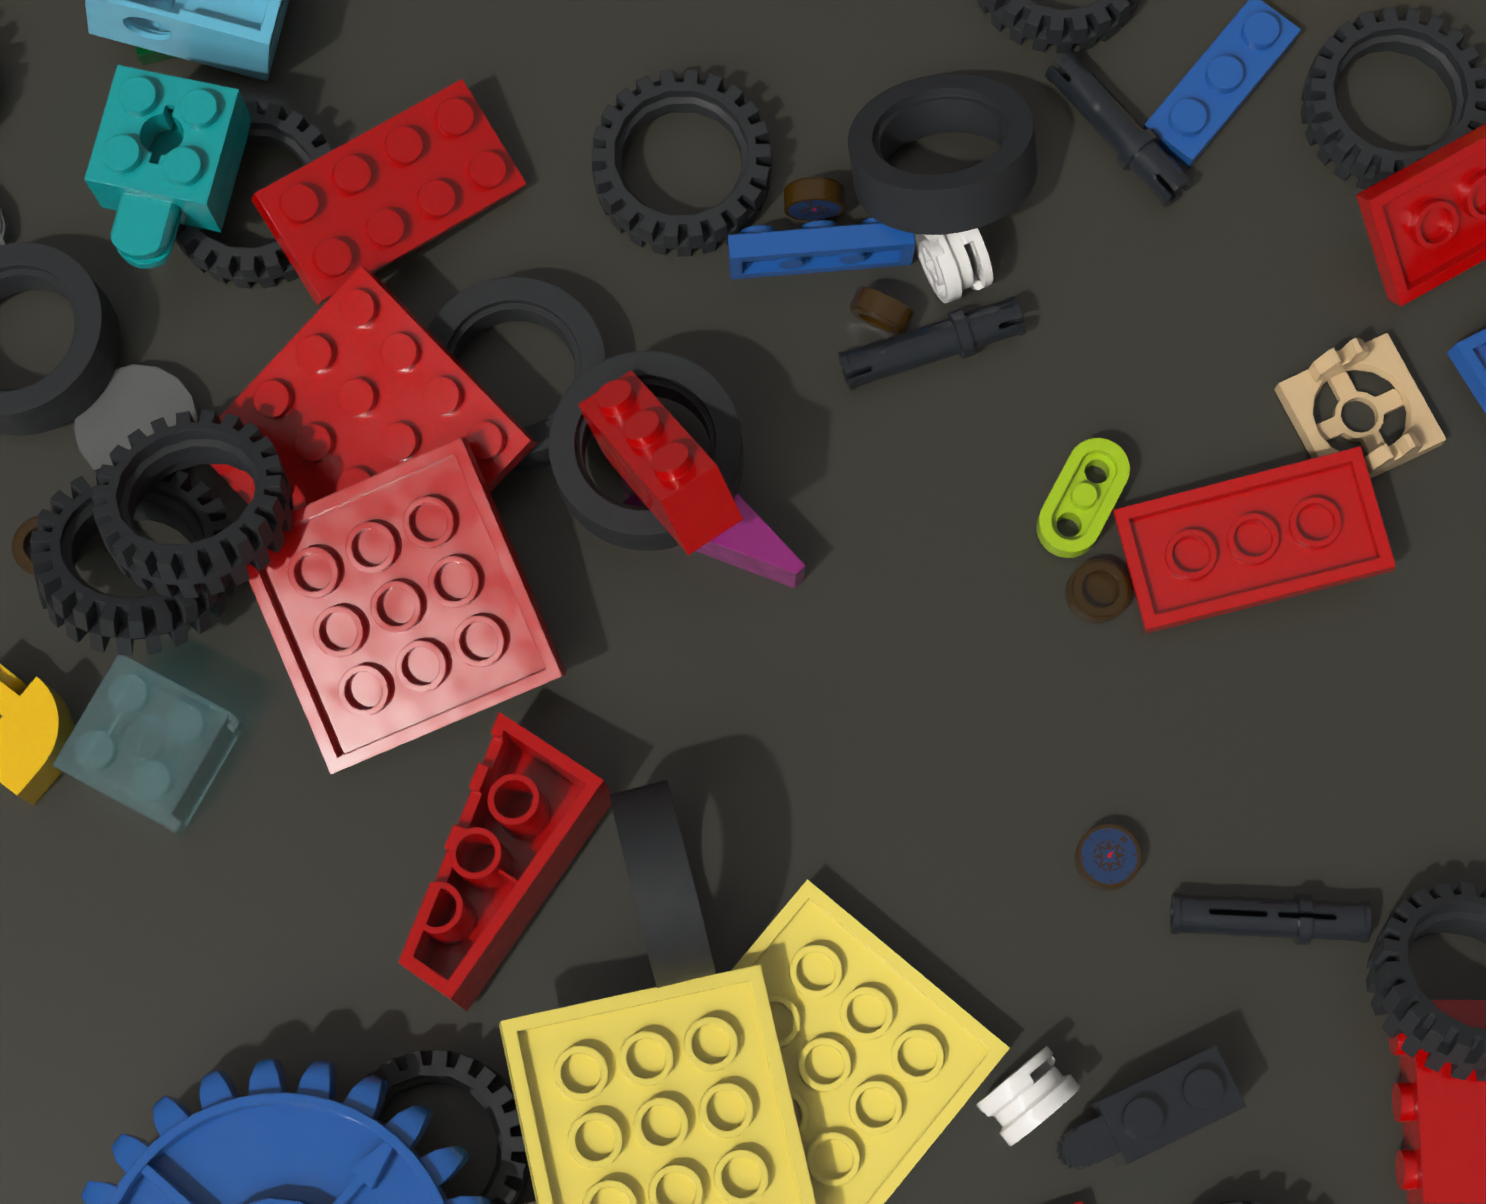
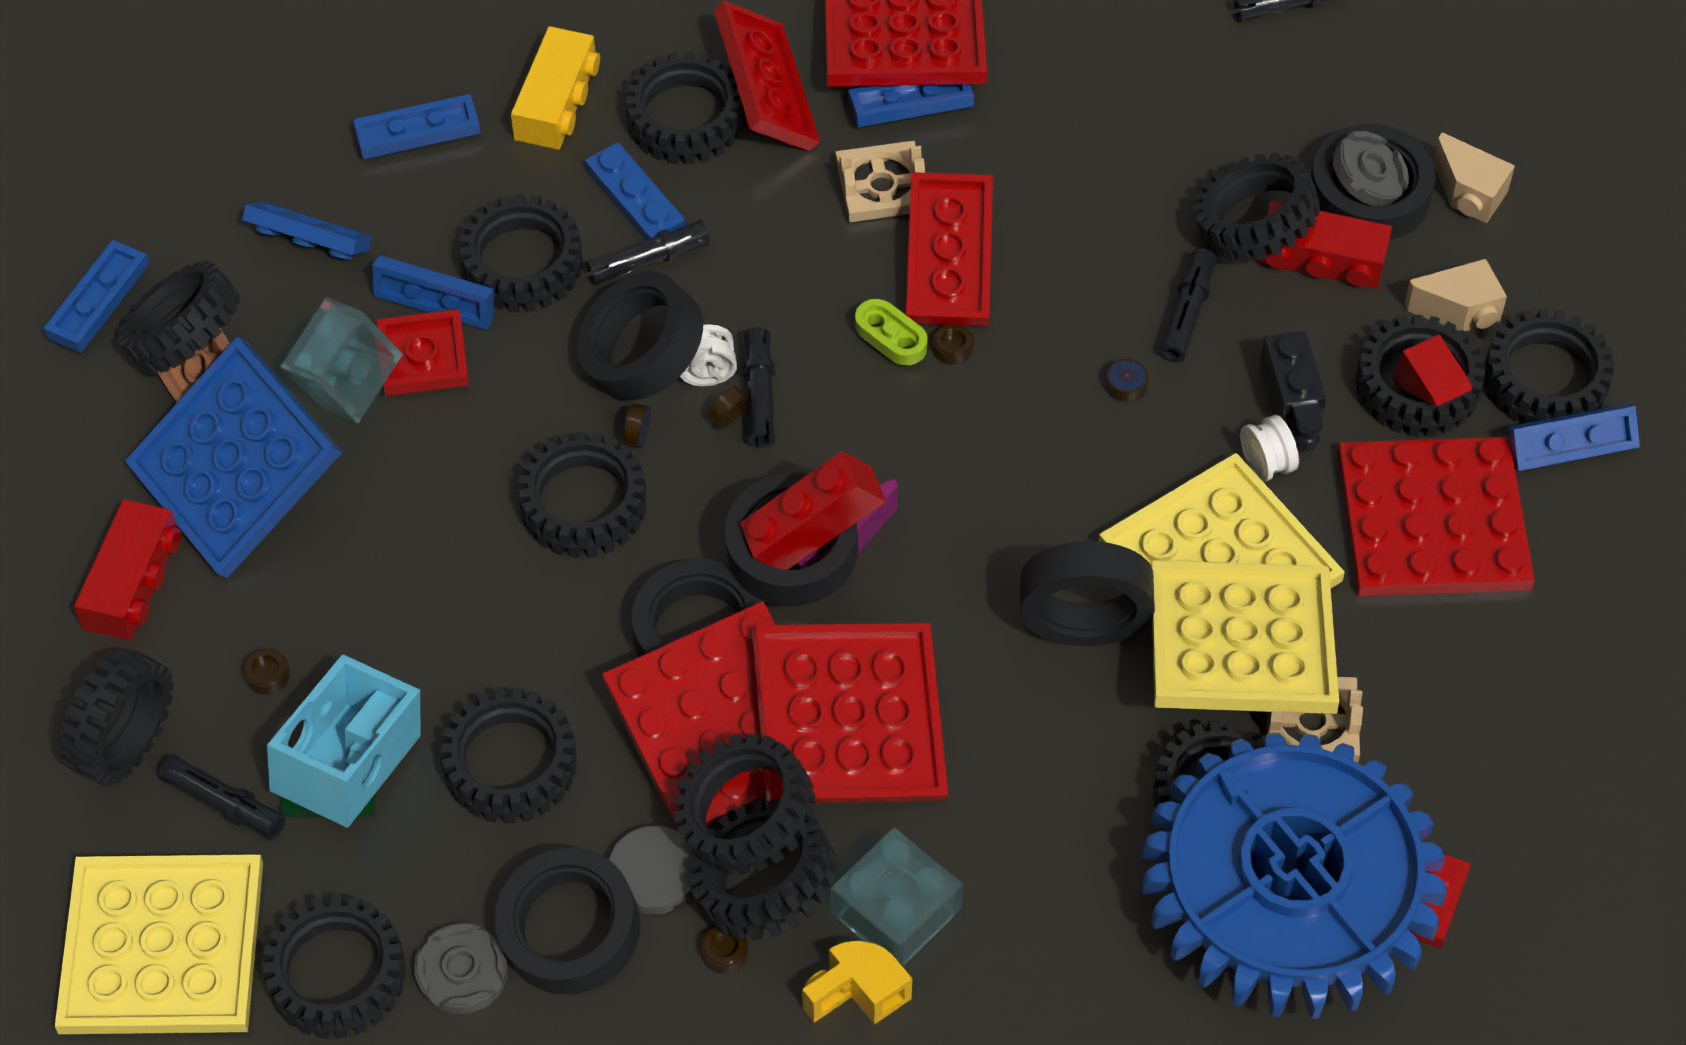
camera: 75 degrees left, 20 degrees down
(183, 175) = (475, 794): teal brick -> none
(389, 190) = (544, 662): red plate -> none
(501, 860) = (1035, 695): red wedge -> none
(817, 249) = (671, 431): blue plate -> none

